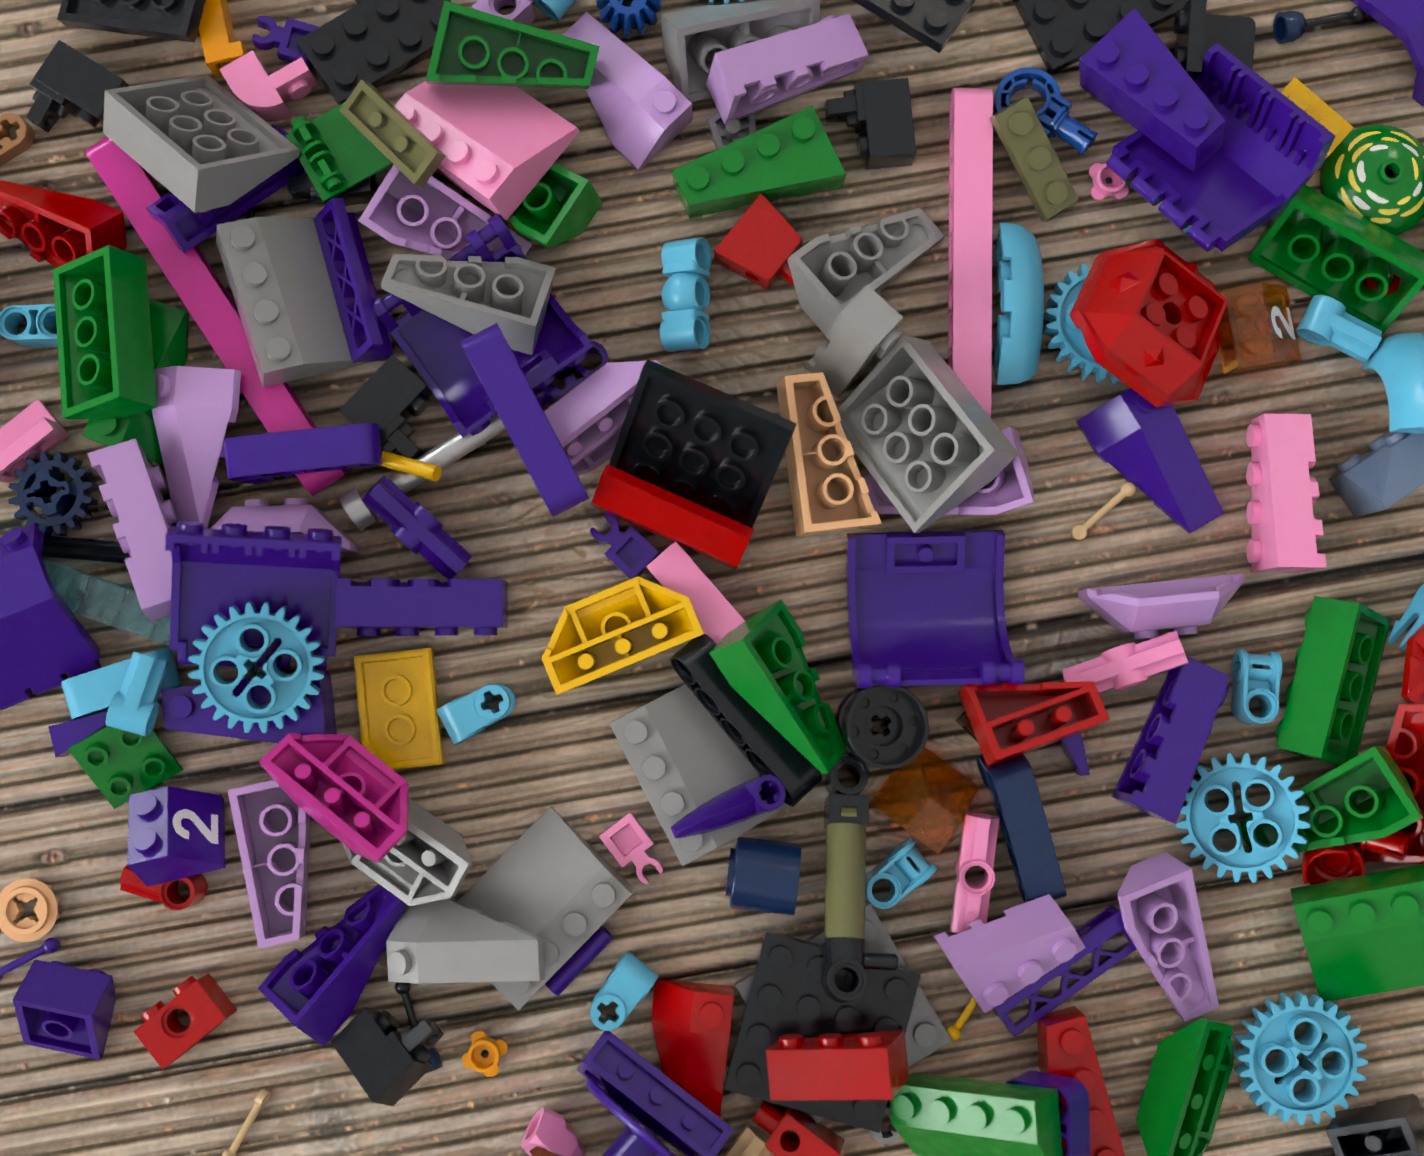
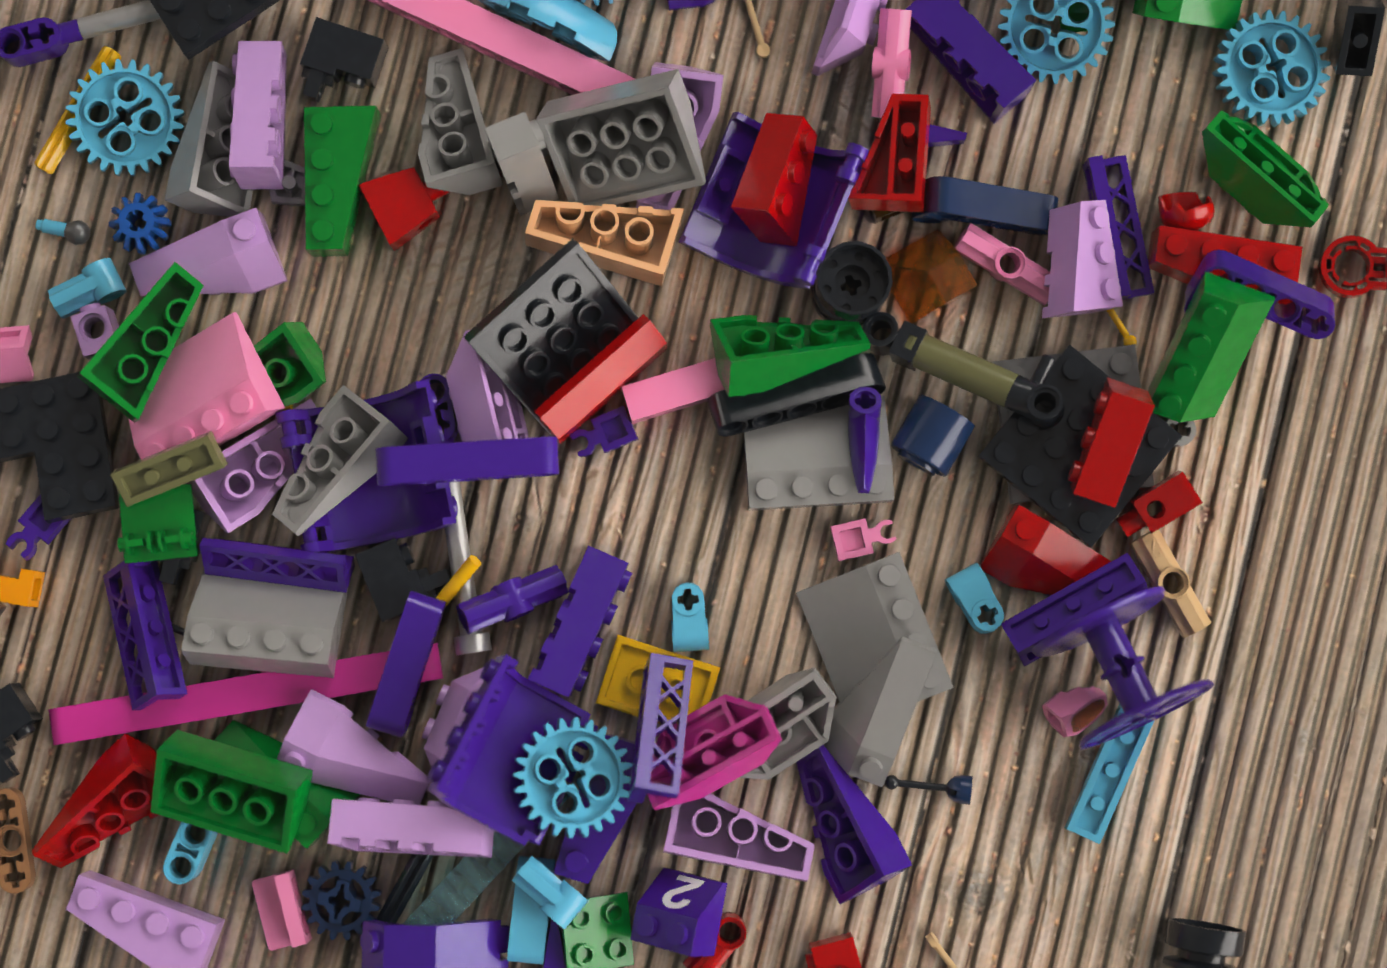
camera: 70 degrees left, 0 degrees up
(195, 139) = (94, 640): light grey slope -> none
(268, 93) = (75, 570): bright pink brick -> none
(340, 718) = (647, 723): none -> fence
(383, 1058) = (943, 817): black hinge -> none
(474, 1058) = (977, 747): light orange plate -> none
(579, 960) = (936, 623): dark purple piece -> none
(617, 631) = (675, 467): yellow wedge -> none
(685, 294) = (415, 286): medium azure piece -> none
(899, 873) = (979, 321): medium azure piece -> none
(954, 603) = (777, 179): none -> red wedge
(1112, 1033) = (1185, 210): none -> red hair
(1168, 931) = (1124, 127): lavender wedge -> none

